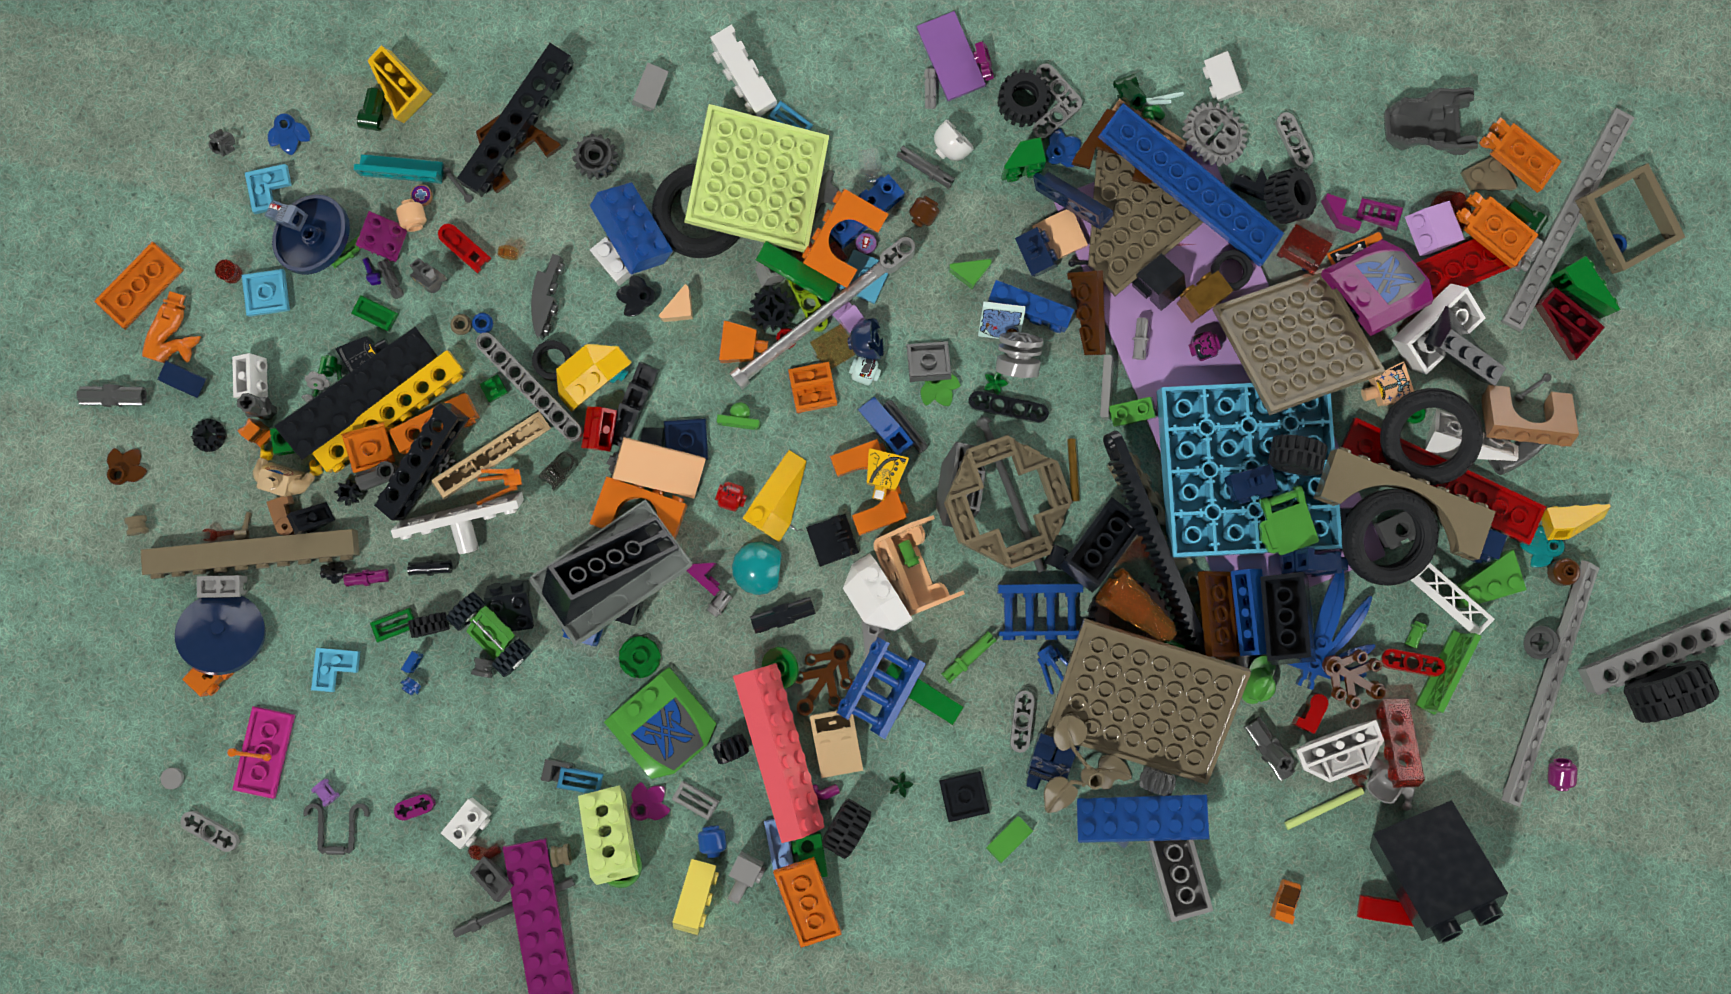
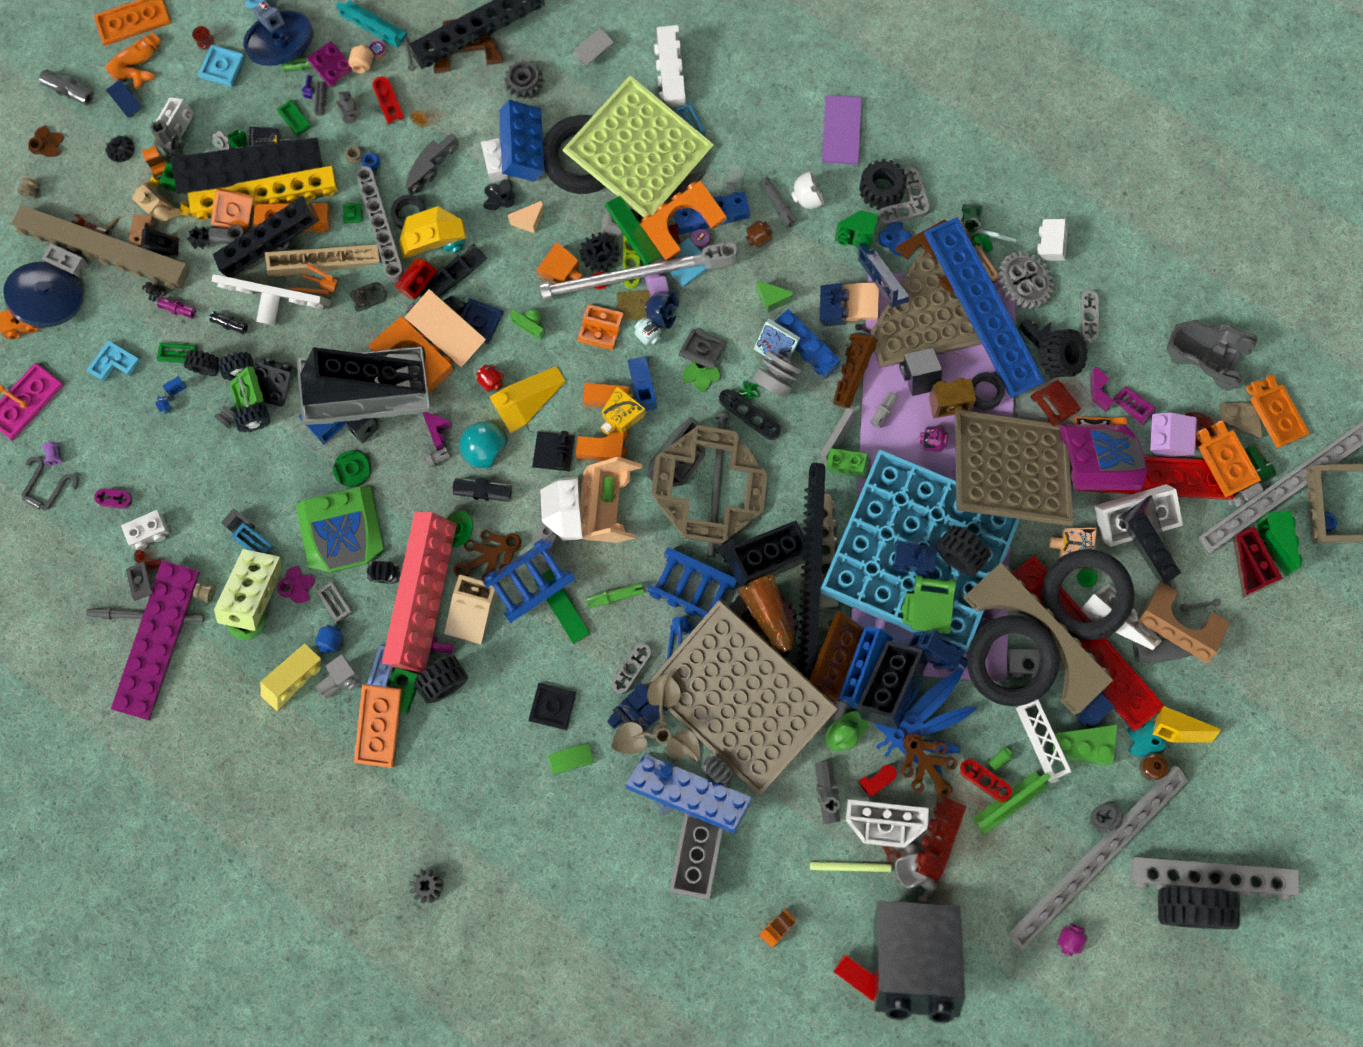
camera: 30 degrees right, 10 degrees down
(895, 412) = (659, 391): dark grey axle -> none
(900, 785) = (505, 671): dark green plant -> none
(930, 88) = (812, 146): light grey axle -> none
(983, 58) = (866, 140): magenta plate -> none
(1073, 470) = (777, 489): pearl gold bar -> none

